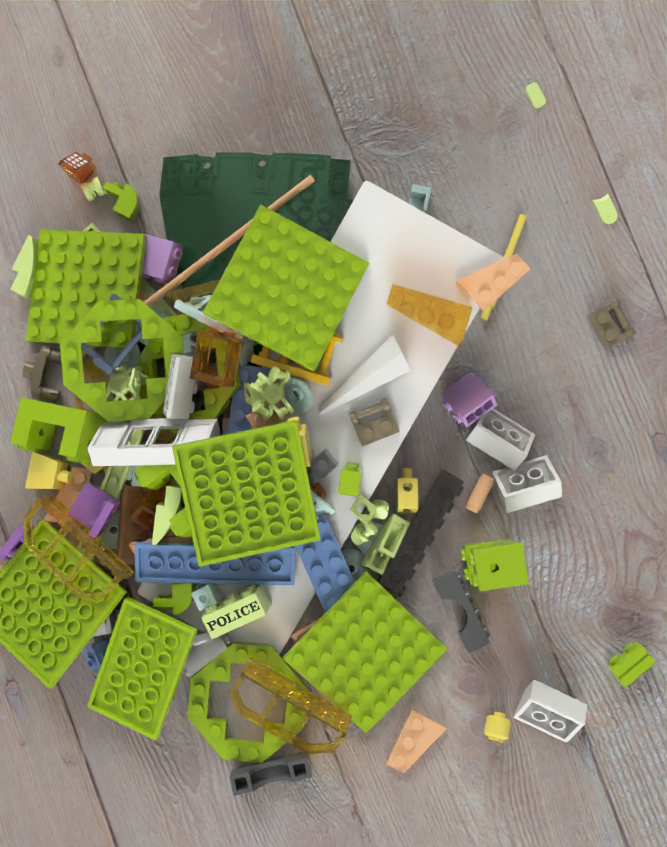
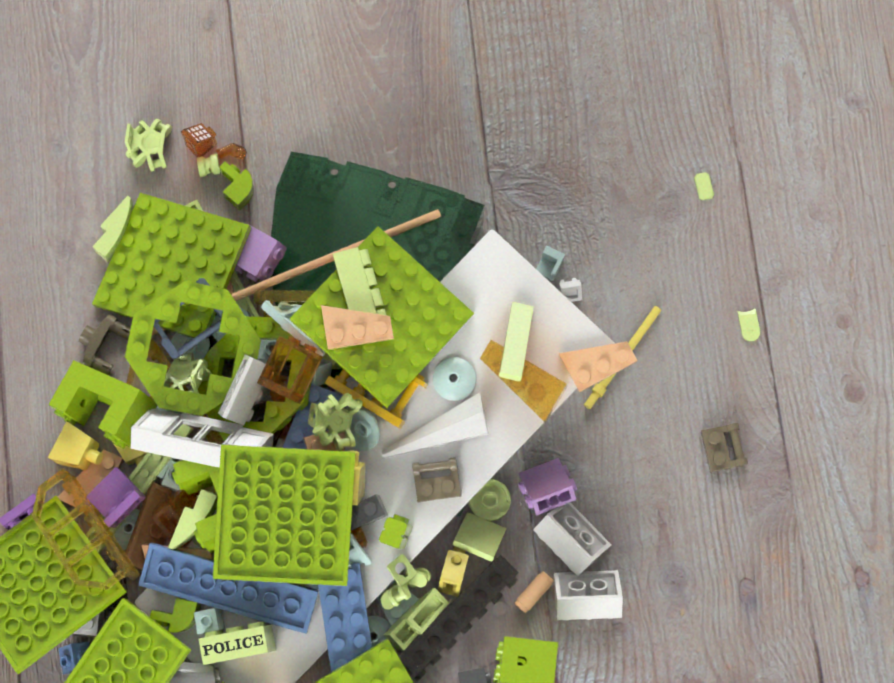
camera: 10 degrees right, 10 degrees down
(34, 181) = (148, 141): none -> yellowish green piece
(111, 169) = (233, 150): none -> clear orange arm
(256, 267) = (357, 281): none -> yellowish green windscreen
(265, 306) = (354, 327): none -> light nougat wing
(377, 327) = (454, 390): none -> light aqua dish
(416, 280) = (516, 341): none -> yellowish green tile
(421, 458) = (479, 536): none -> yellowish green tile
(425, 425) = (491, 501): none -> yellowish green tile
(445, 216) = (571, 290): none -> white tile

